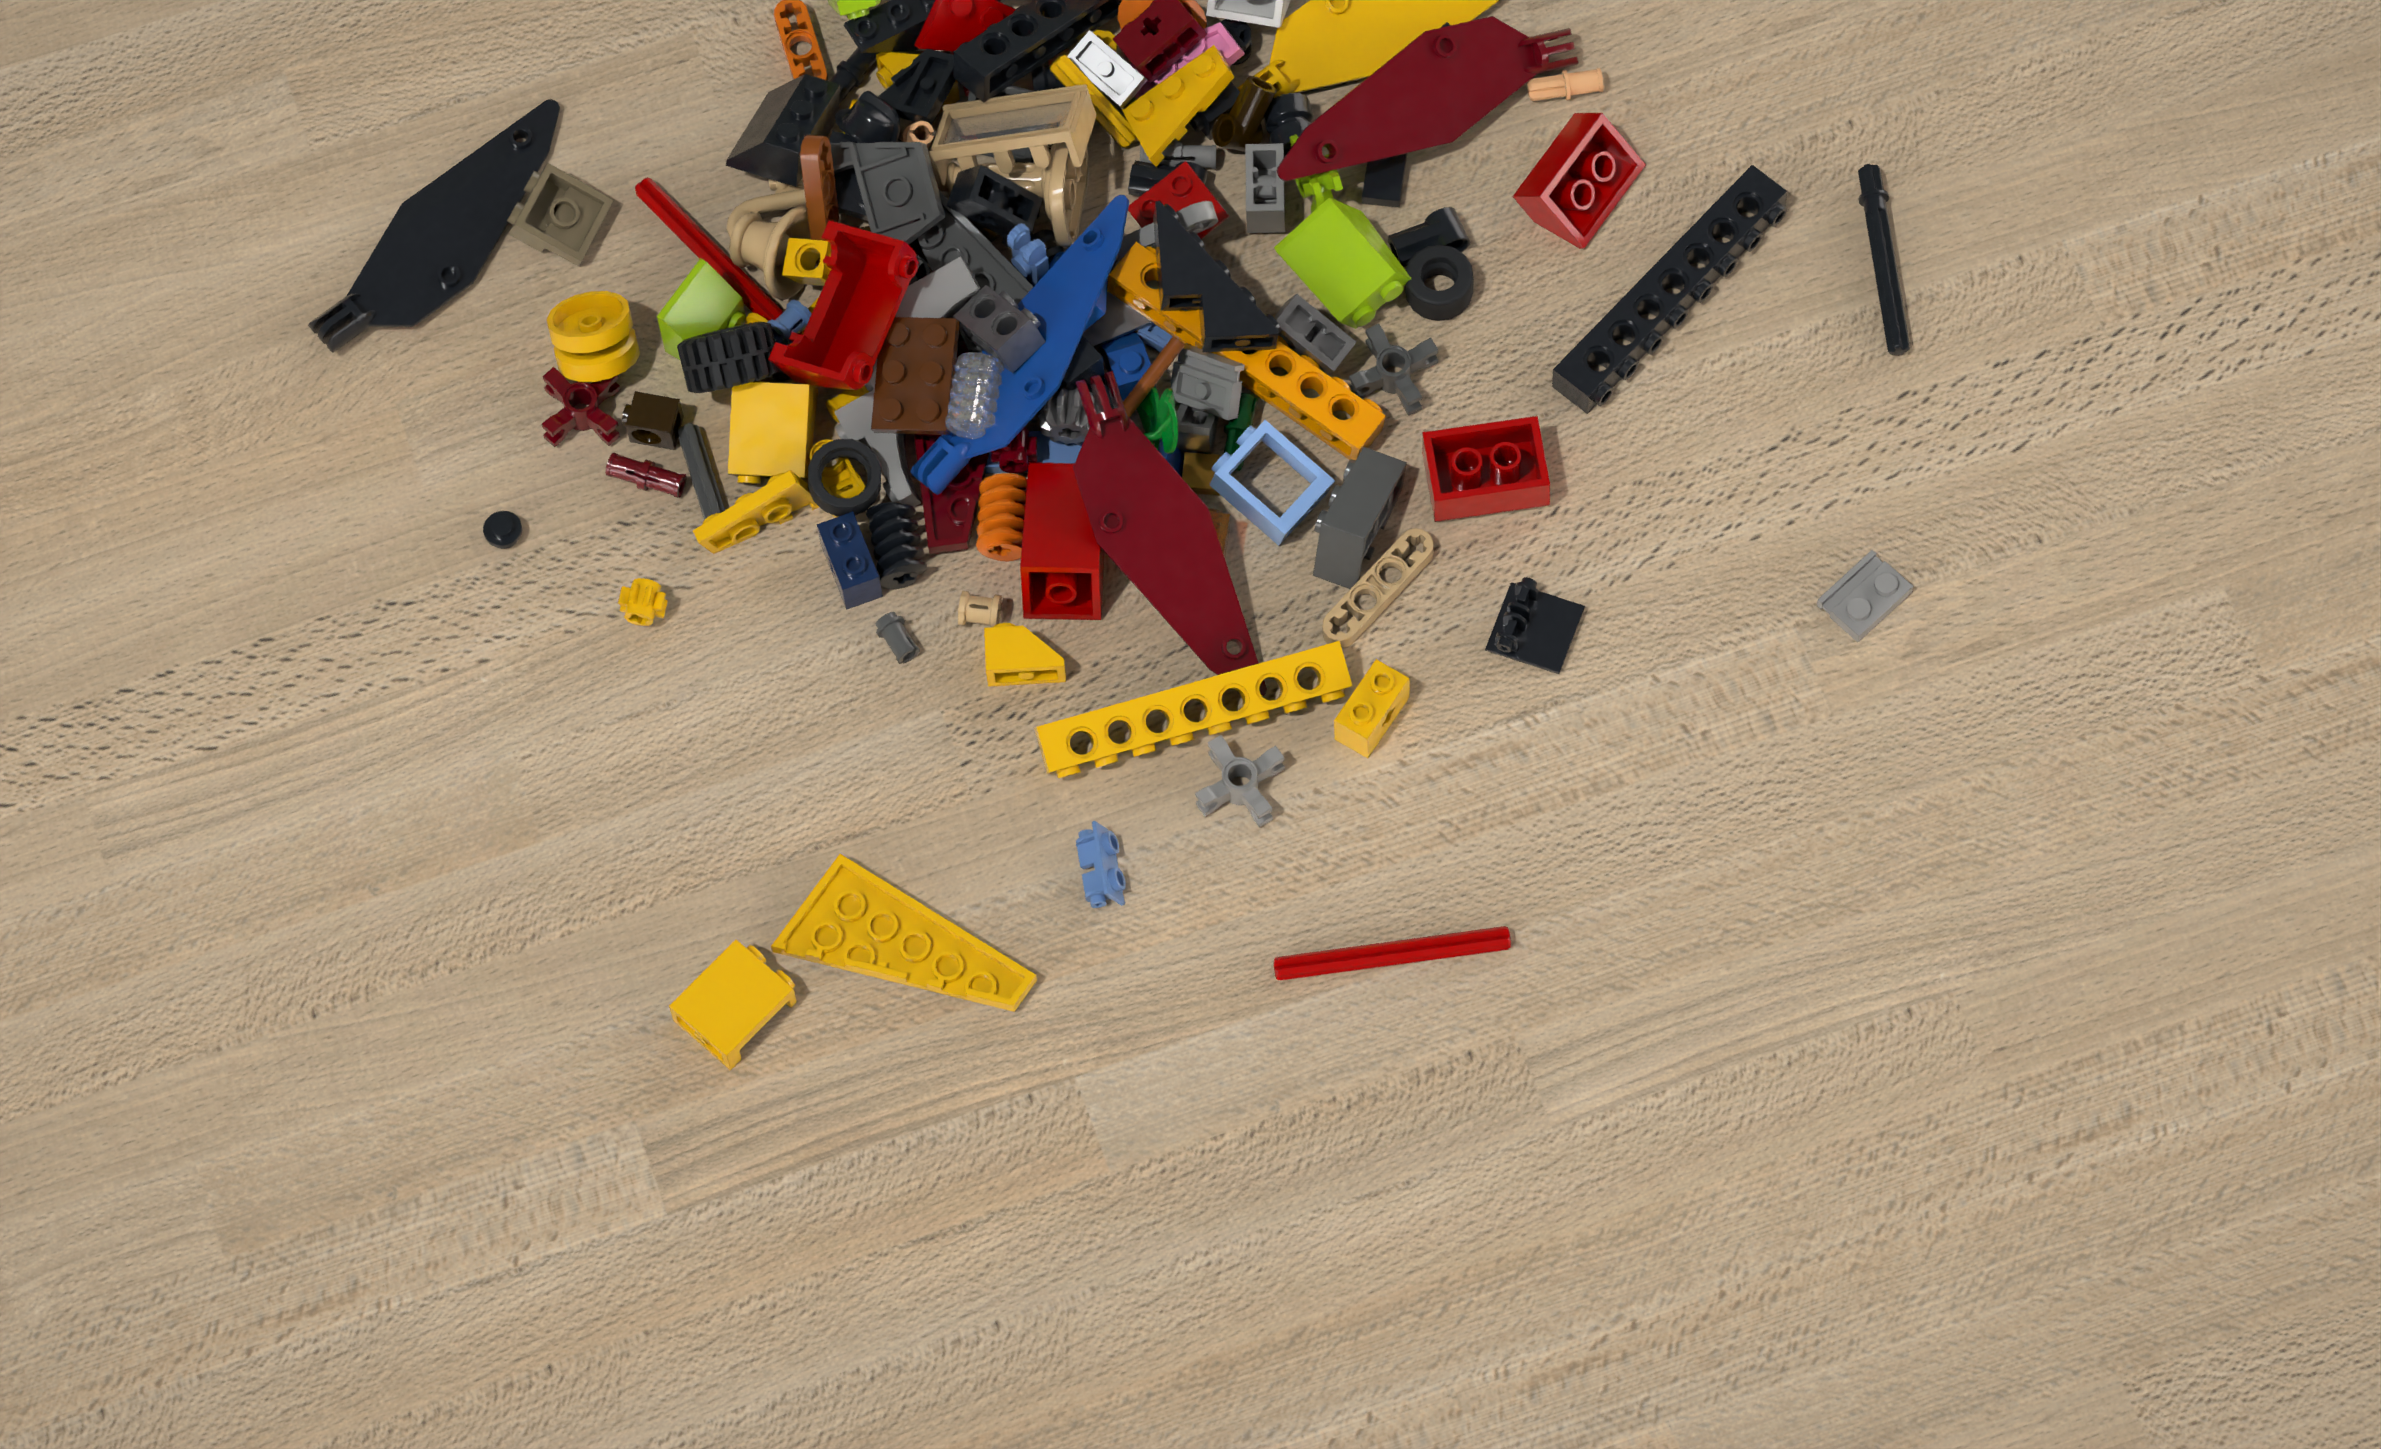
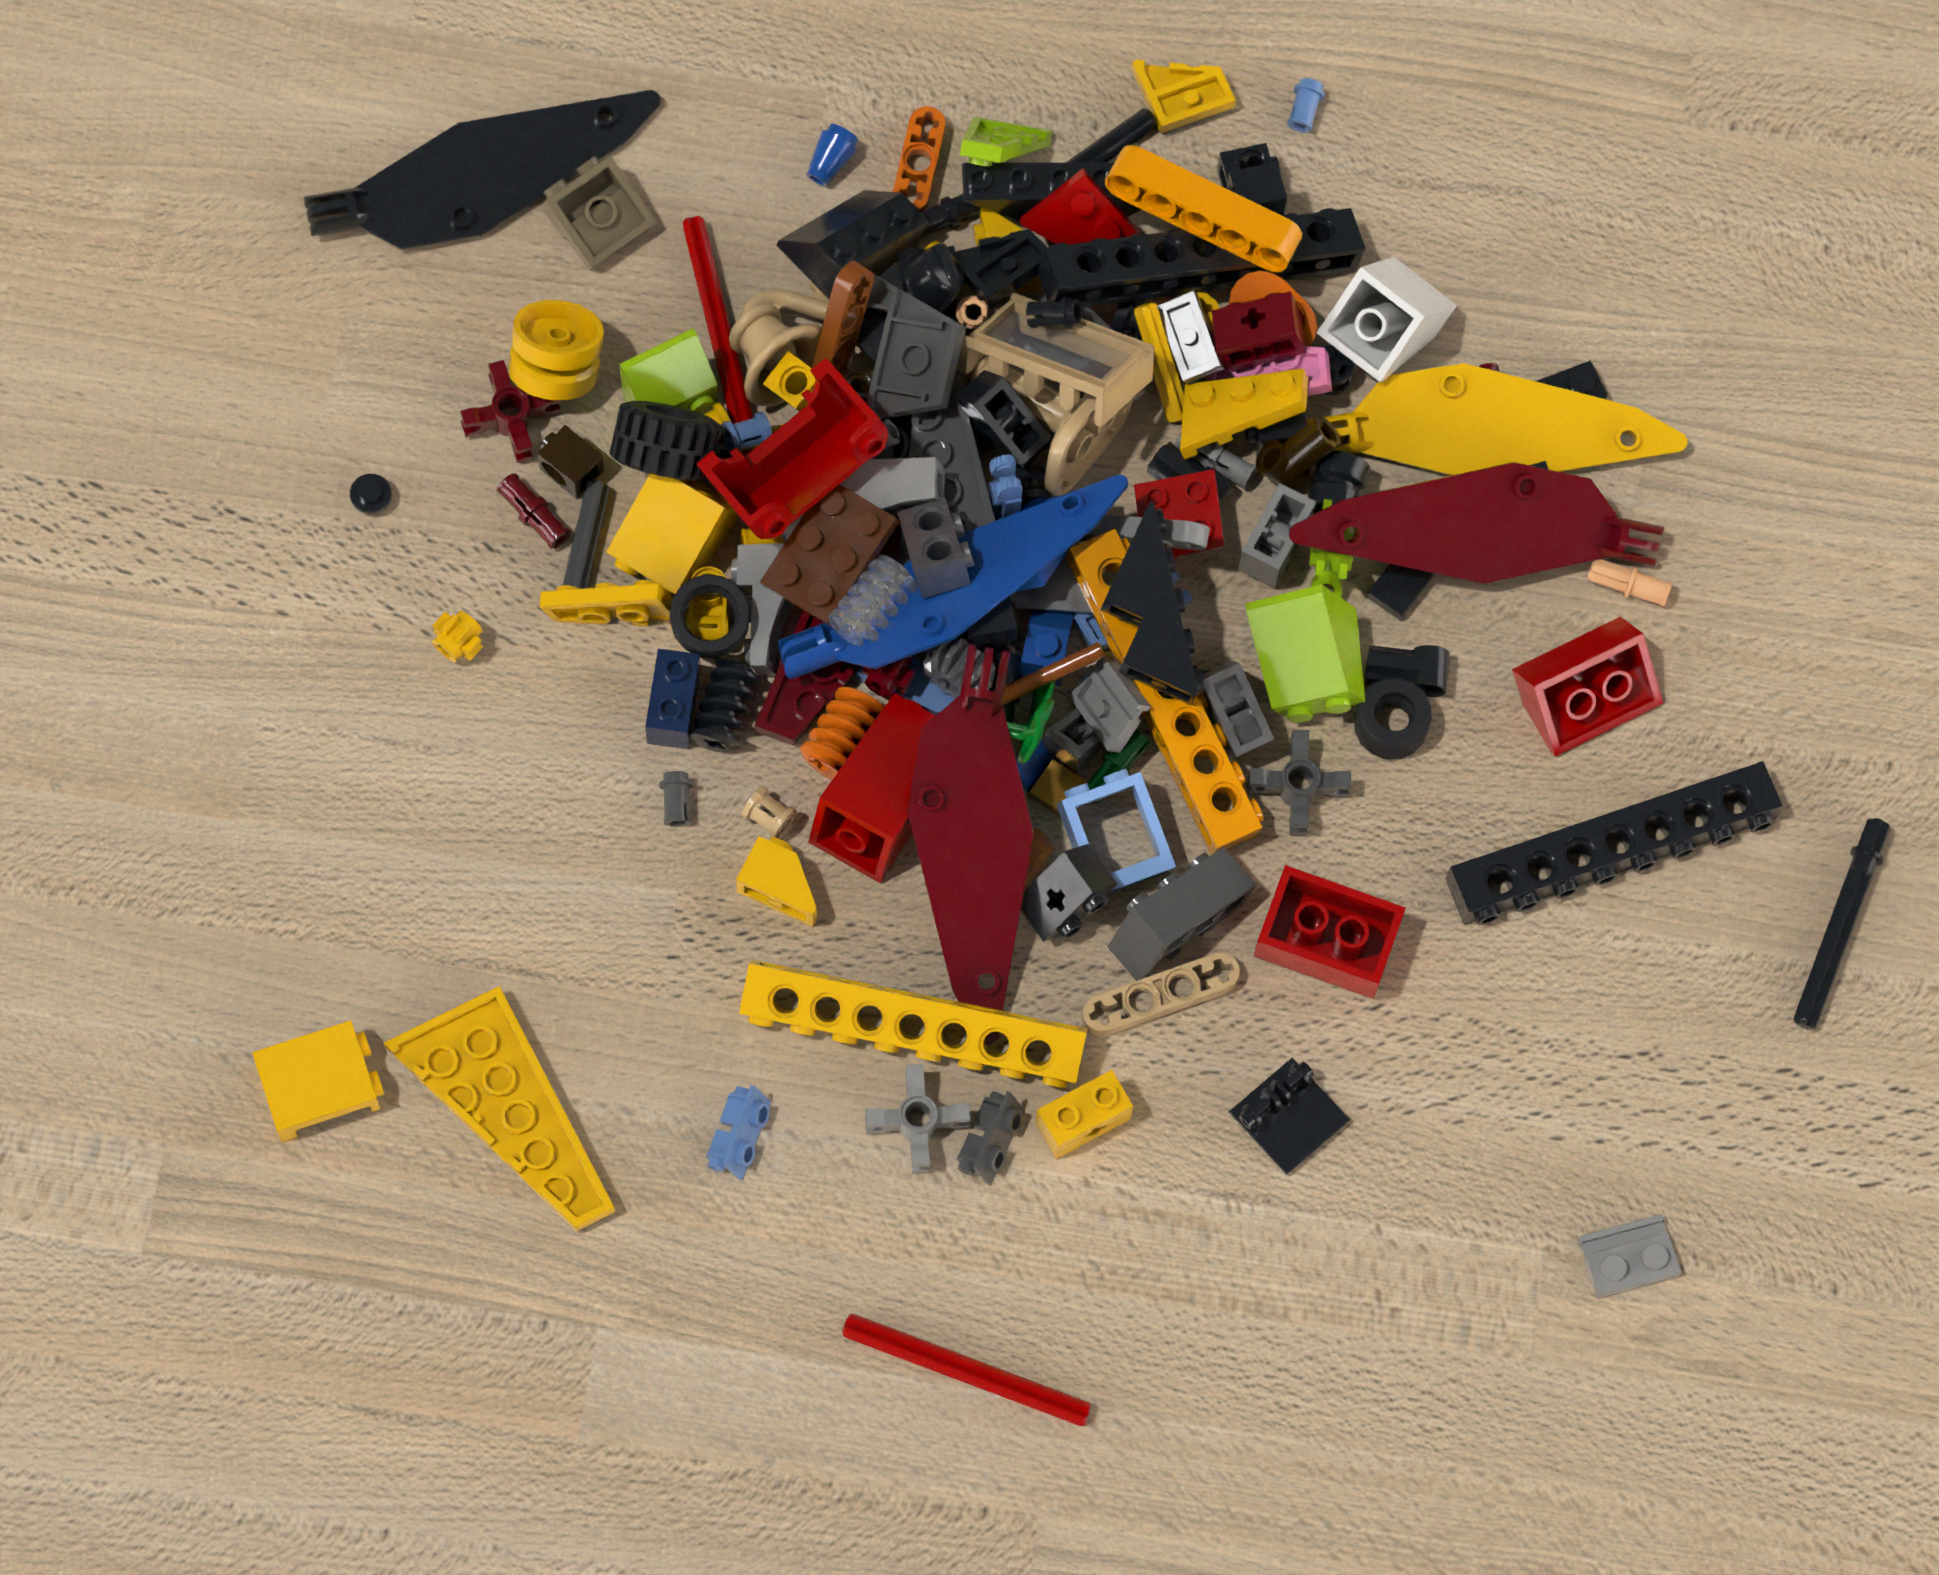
camera: 20 degrees right, 5 degrees up
(726, 74) = (832, 152): none -> blue cone
(989, 100) = (1054, 313): none -> black pin
(1260, 544) = (1067, 893): none -> black brick
(1306, 749) = (1000, 1119): none -> dark grey hinge

